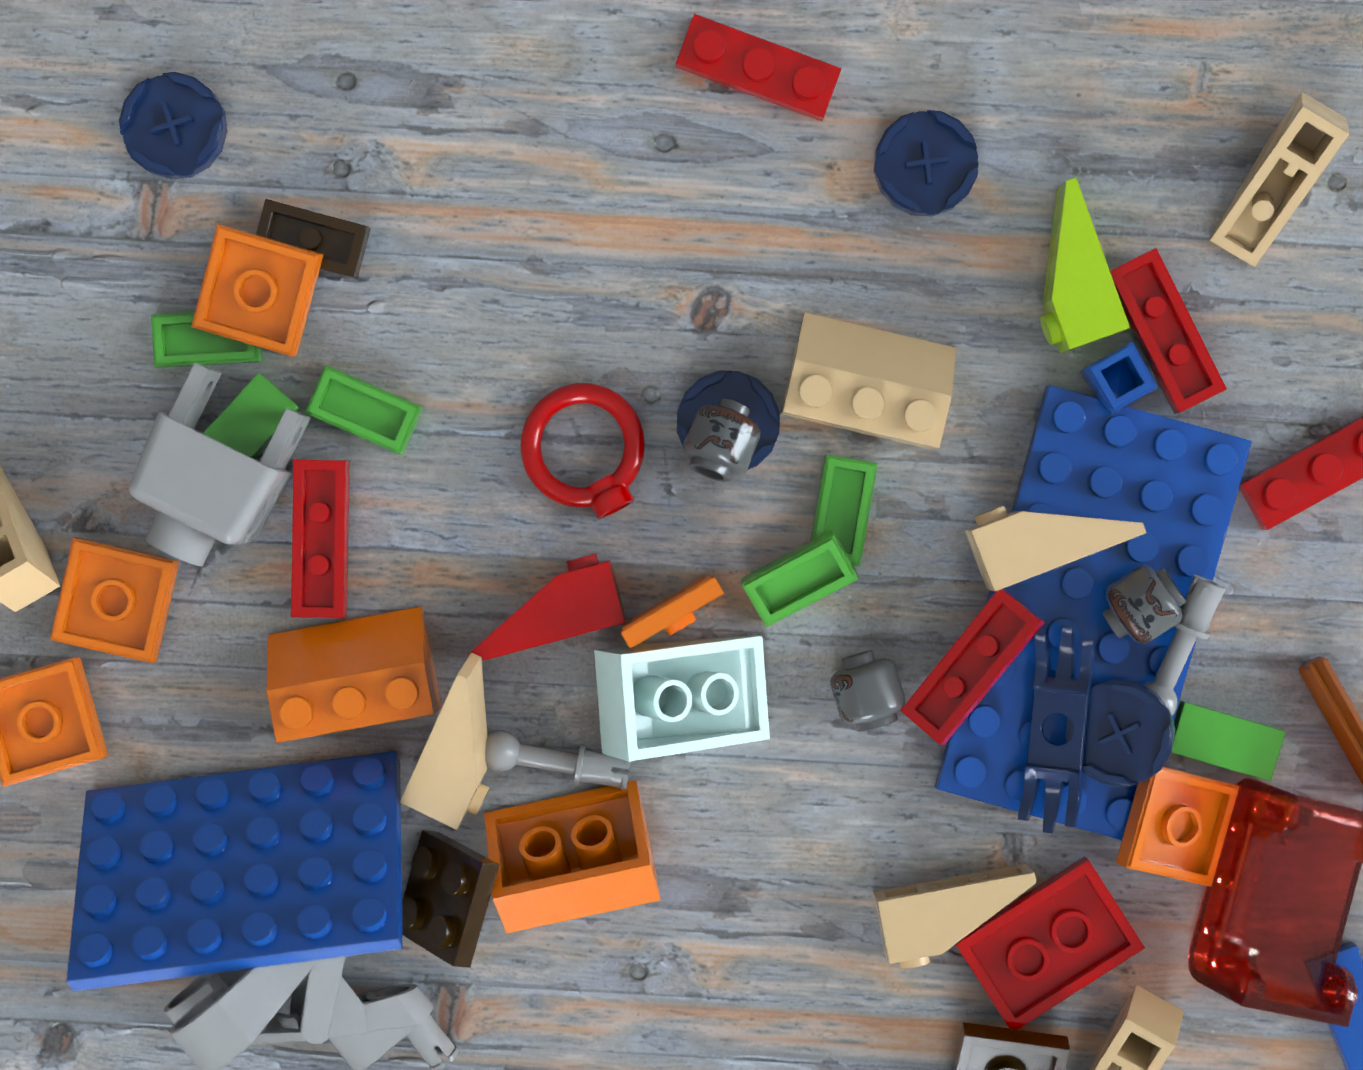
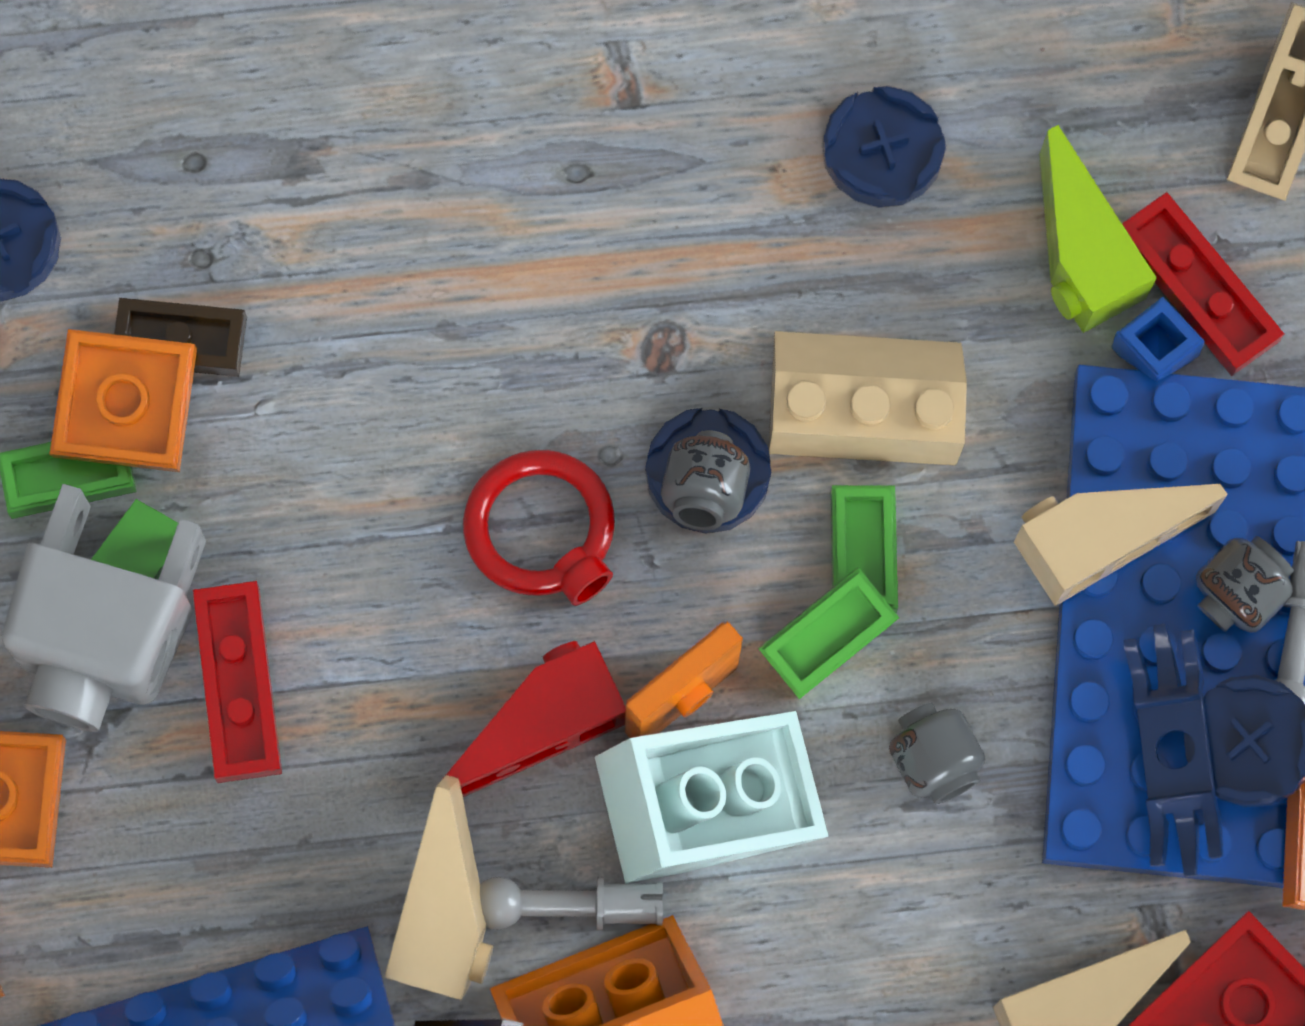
camera: 15 degrees left, 15 degrees down
(350, 674) = (299, 841): orange slope -> none
(363, 410) = (269, 525): bright green tile -> none
(758, 67) = (670, 73): red plate -> none
(972, 666) = (1056, 694): red plate -> none

